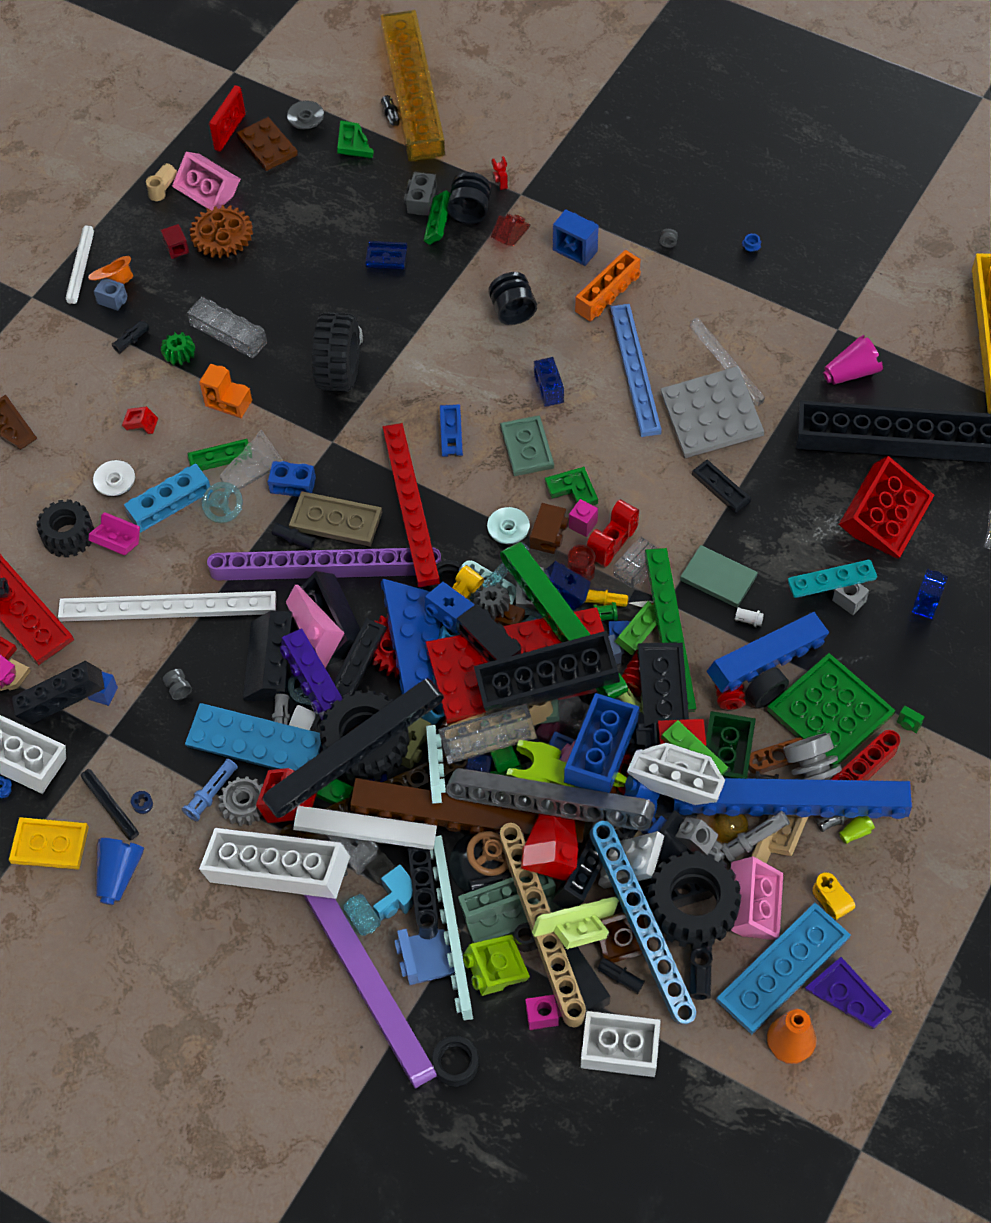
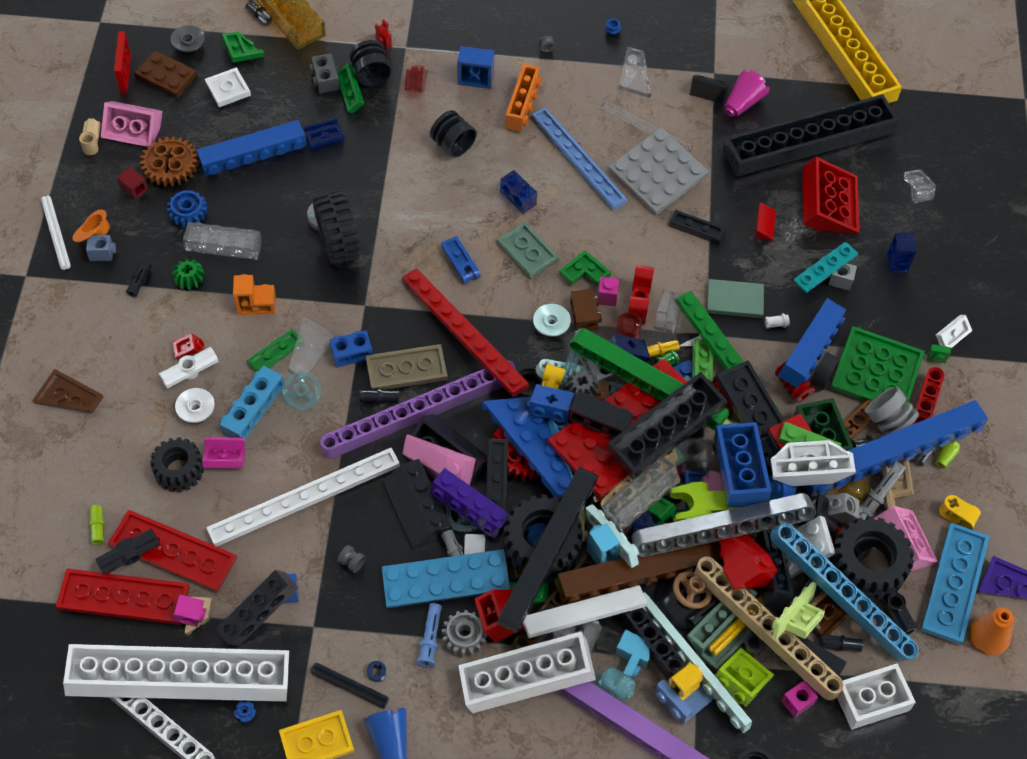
camera: 30 degrees left, 0 degrees up
(128, 439) = (197, 363): none -> white piece
(212, 283) = (187, 207): none -> blue gear
(307, 245) = (251, 148): none -> blue brick
(318, 176) = (227, 87): none -> white plate
(417, 767) = (602, 544): none -> medium azure brick
(426, 941) = (686, 680): none -> yellow brick
(509, 914) = (730, 633): none -> yellow axle
(745, 300) = (634, 74): none -> clear wing
(798, 508) = (765, 222): none -> red slope
(819, 342) = (708, 88): none -> black slope
(942, 703) = (954, 331): none -> white plate

